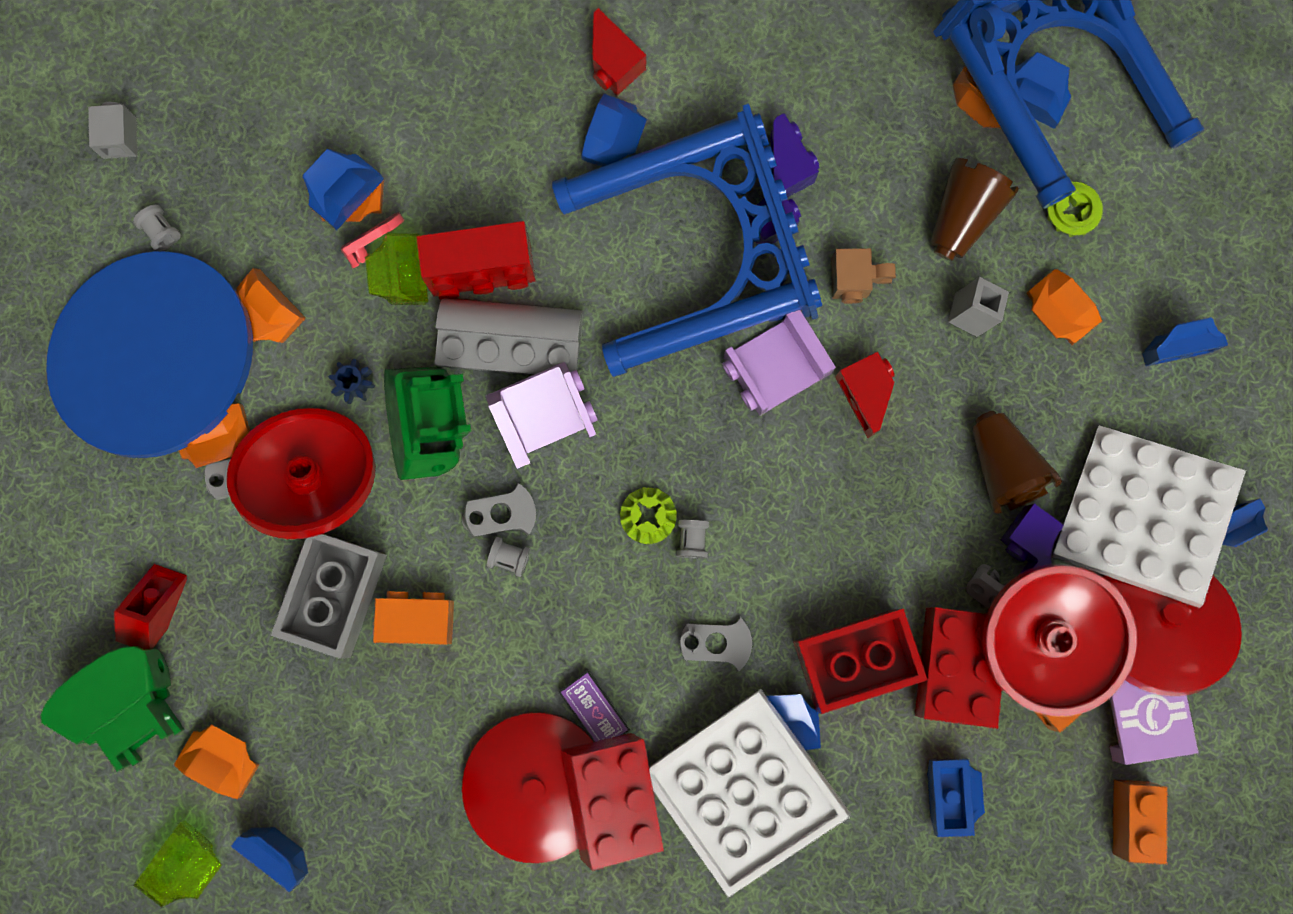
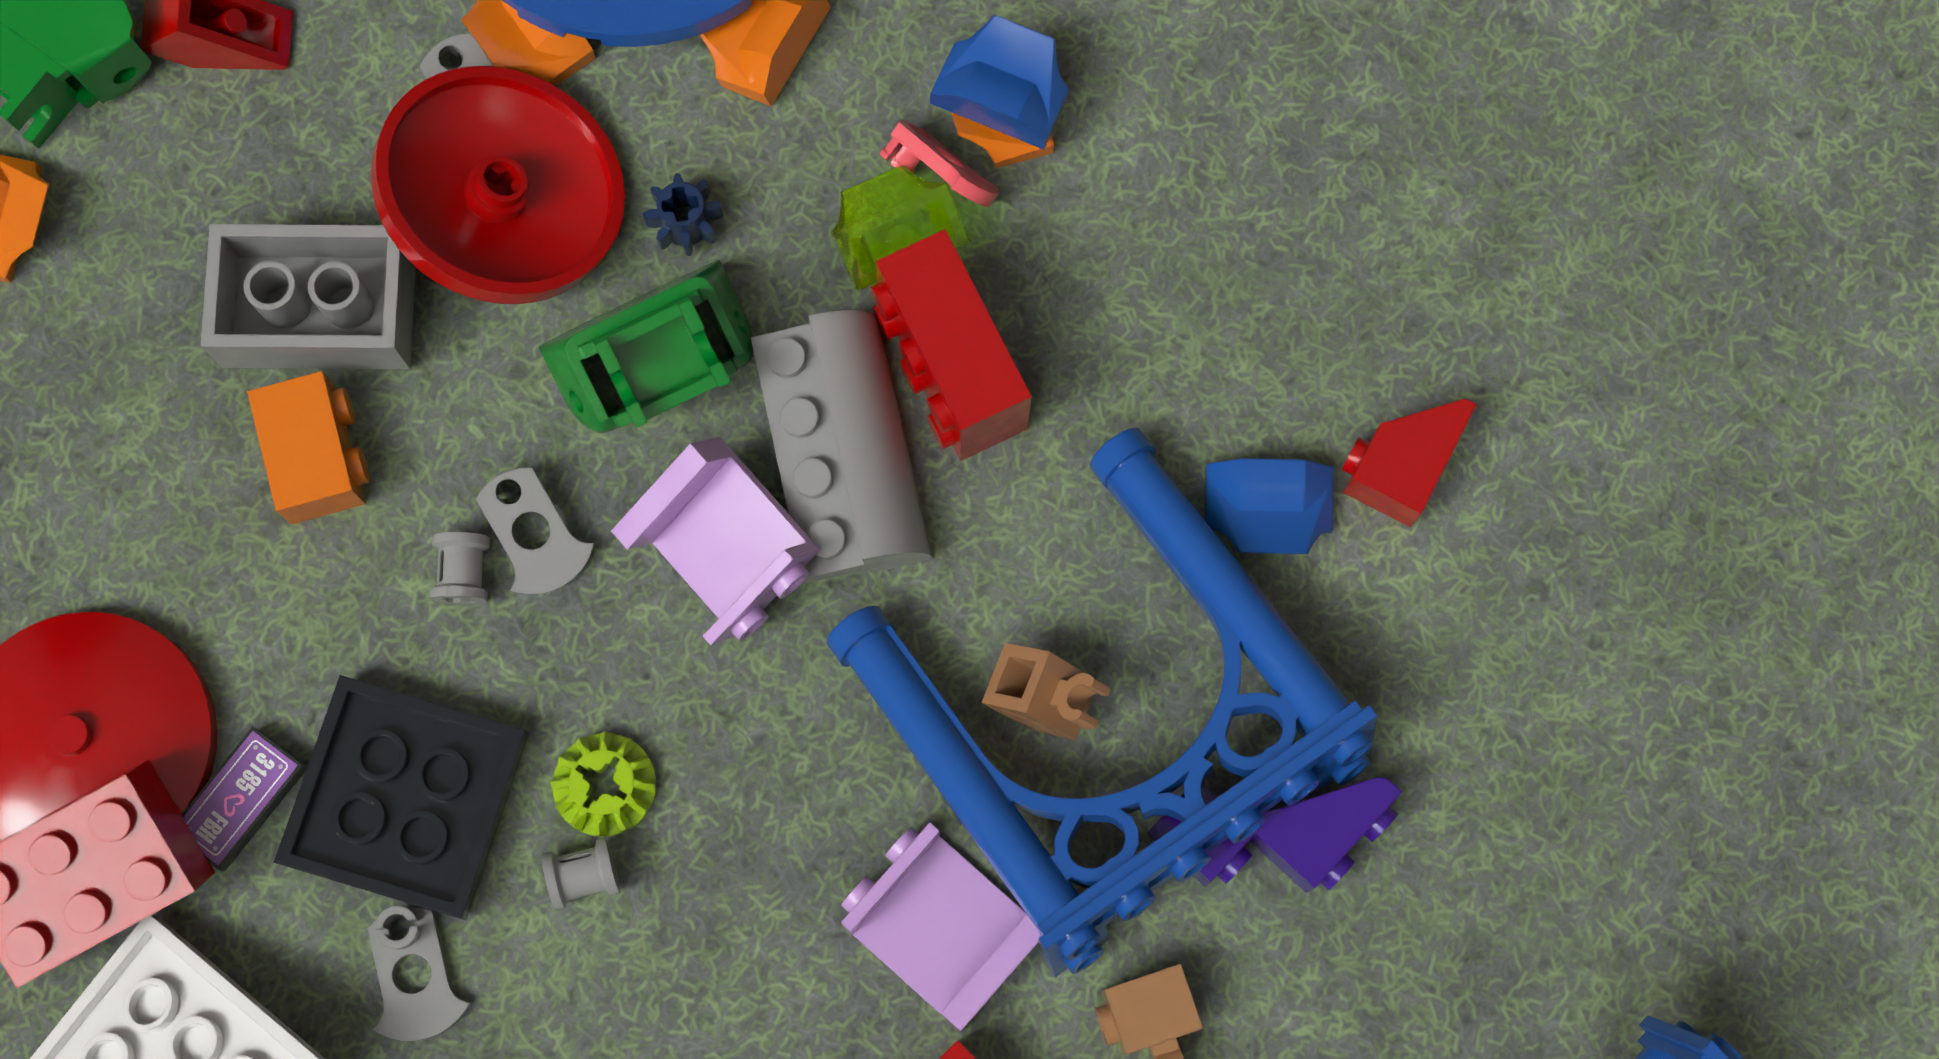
camera: 70 degrees right, 5 degrees down
(622, 622) = (402, 797): none -> black plate
(676, 271) = (1042, 692): none -> medium nougat brick

